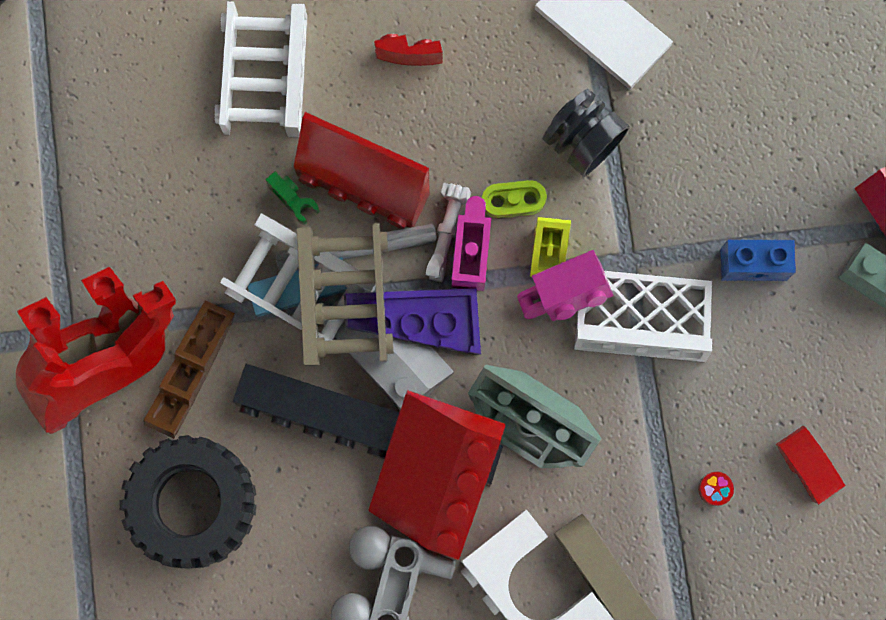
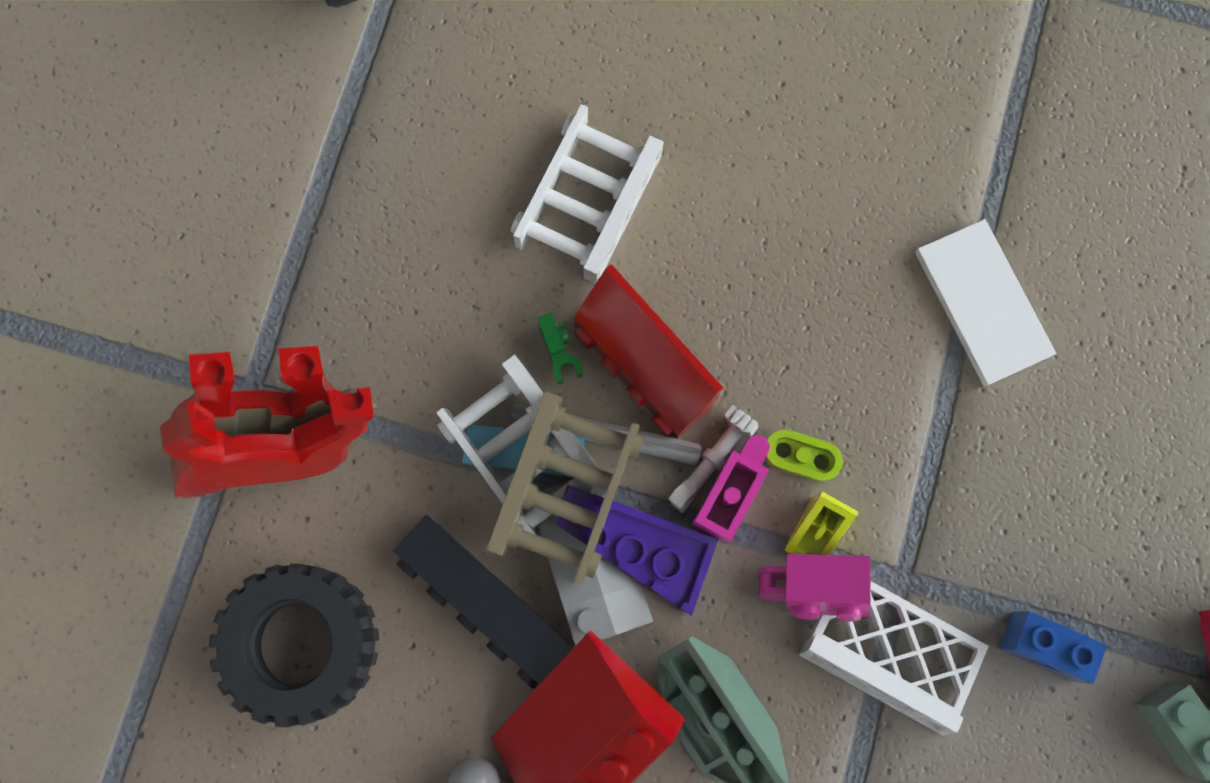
camera: 20 degrees right, 0 degrees up
(189, 369) = (363, 491): reddish brown slope -> none
(396, 50) = (742, 234): red slope -> none
(581, 128) = (916, 416): black wheel -> none

